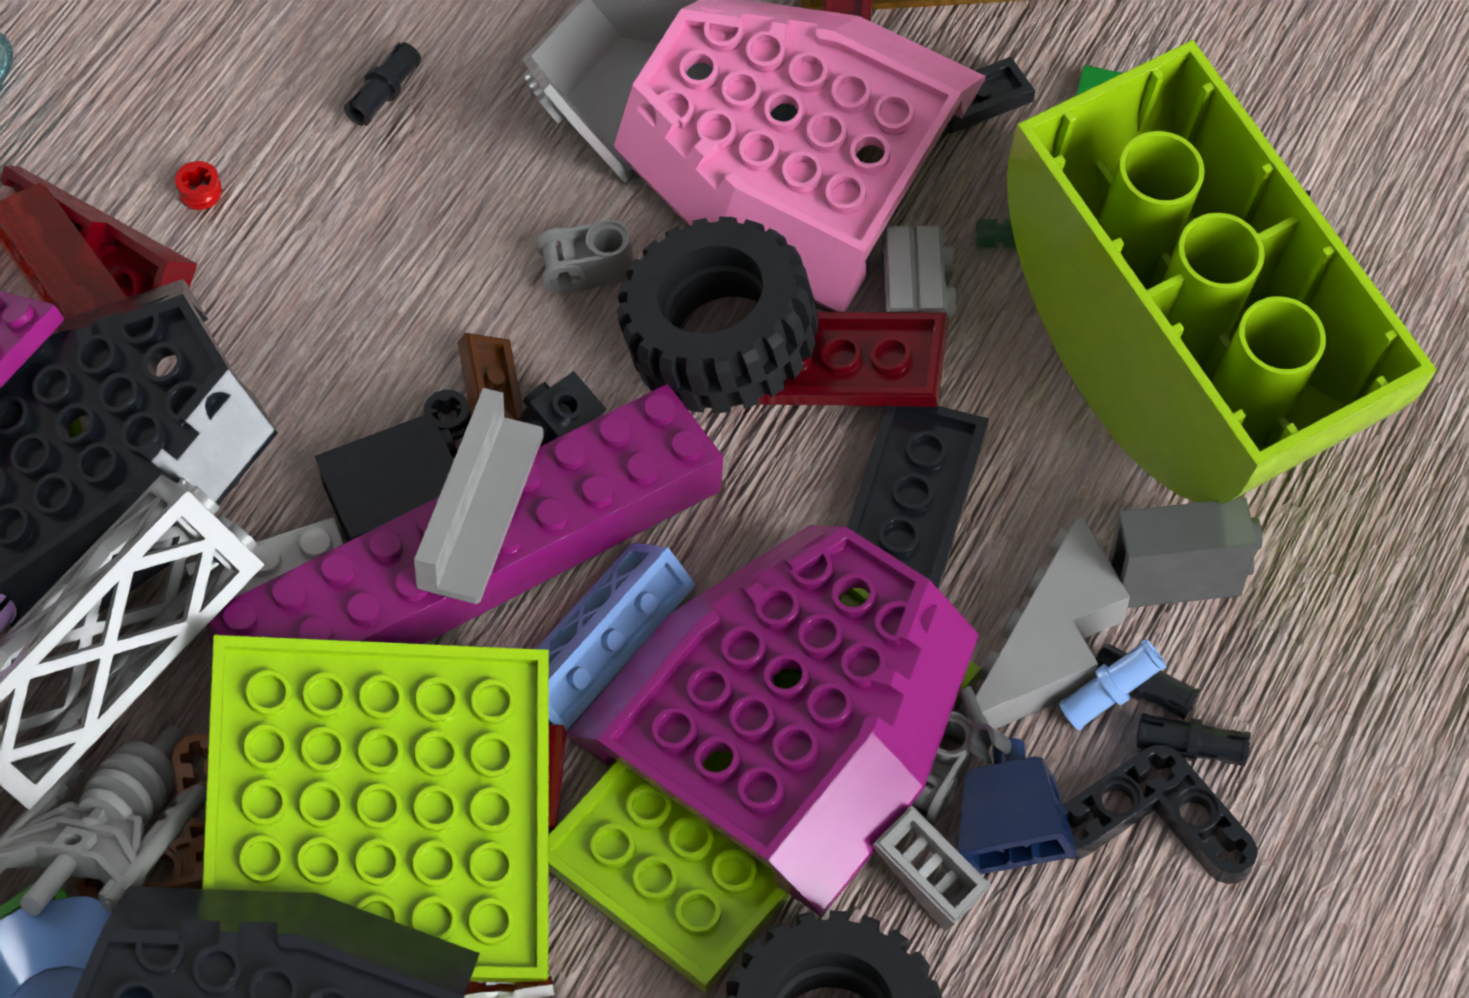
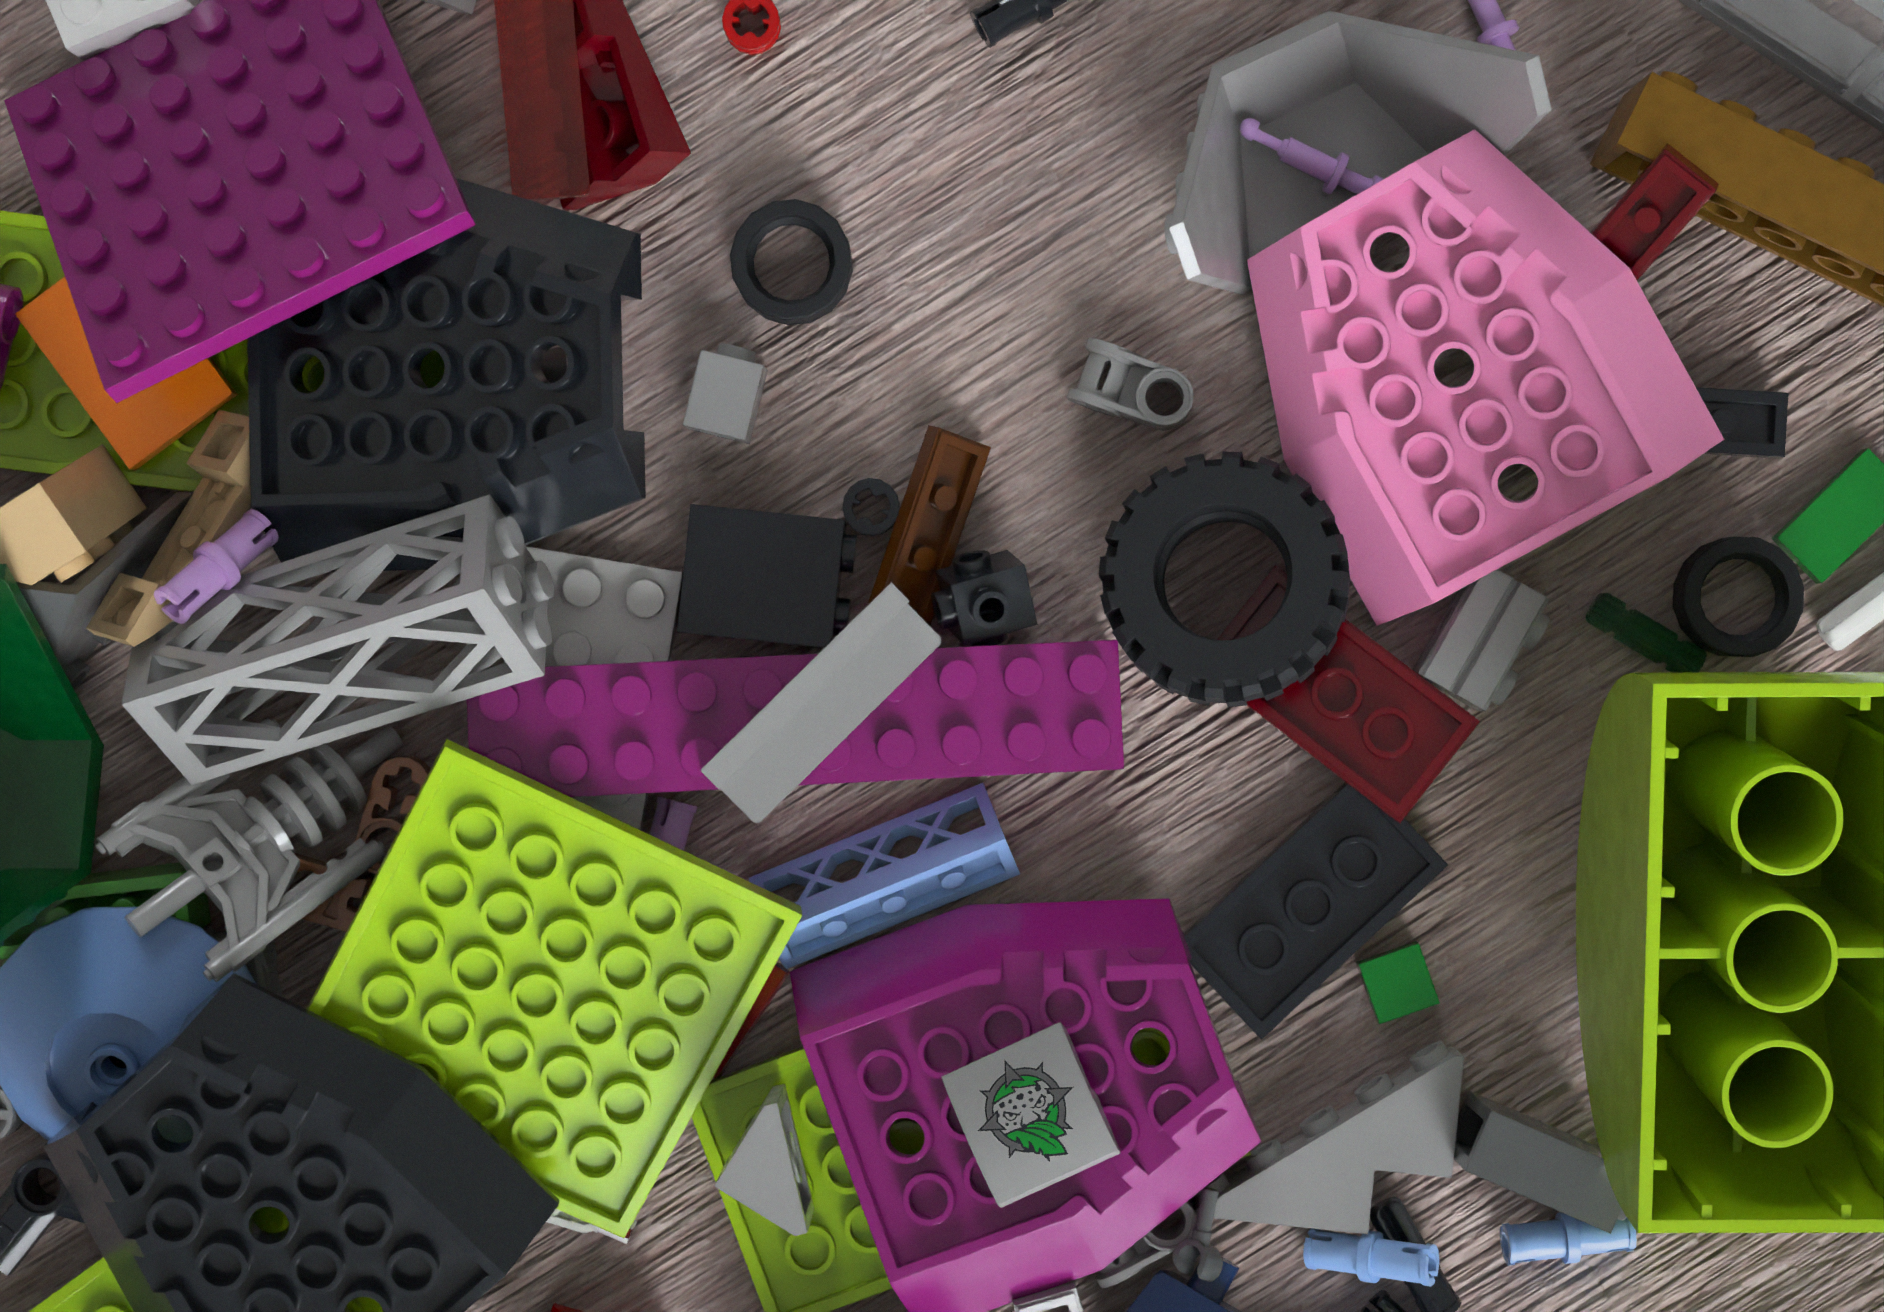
camera: 30 degrees right, 30 degrees up
(296, 268) = (785, 214): none -> black tyre
(303, 394) = (726, 393): none -> light grey brick
(604, 80) = (1310, 160): none -> lavender piece
(629, 834) = (769, 1168): none -> light grey slope
(796, 674) = (1030, 1115): none -> light grey slope
(1008, 516) = (1397, 982): none -> green tile
(1242, 609) = (1562, 1239): none -> light blue pin

